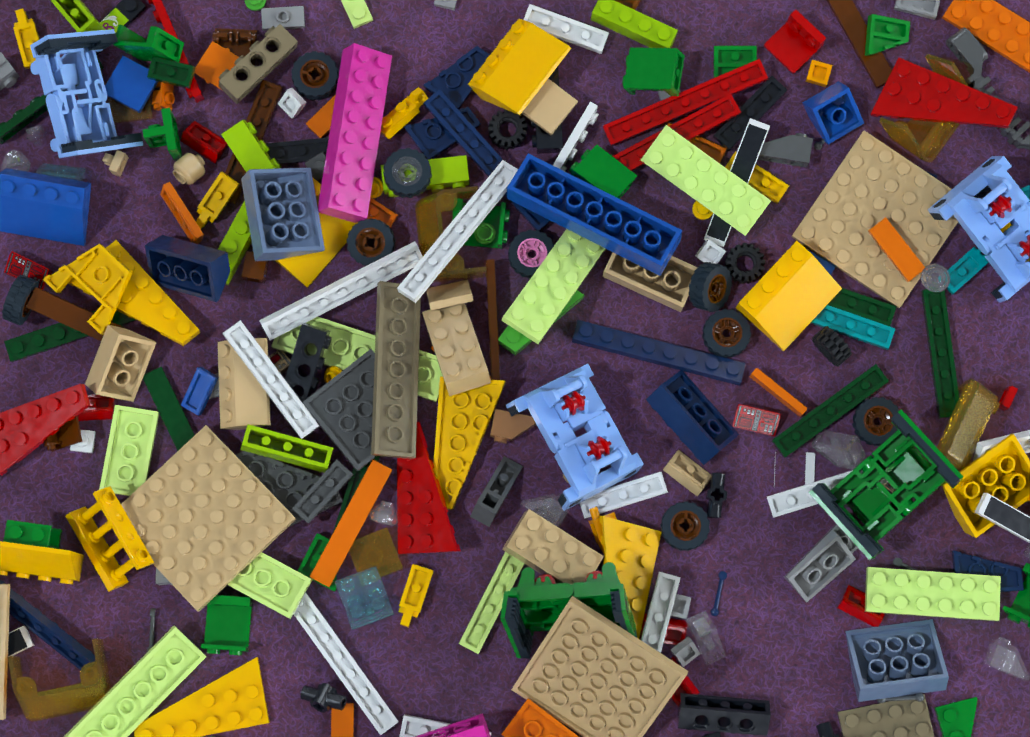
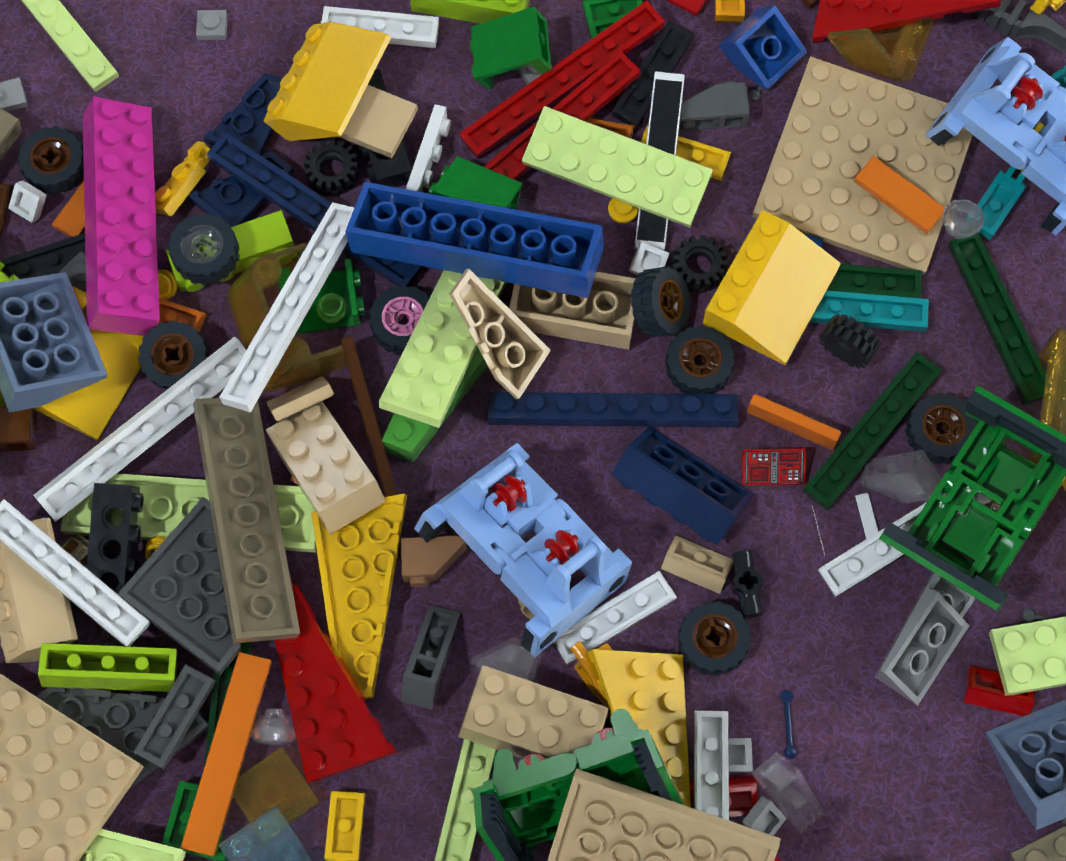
camera: 10 degrees left, 10 degrees down
(595, 290) = (502, 338): none -> tan wedge

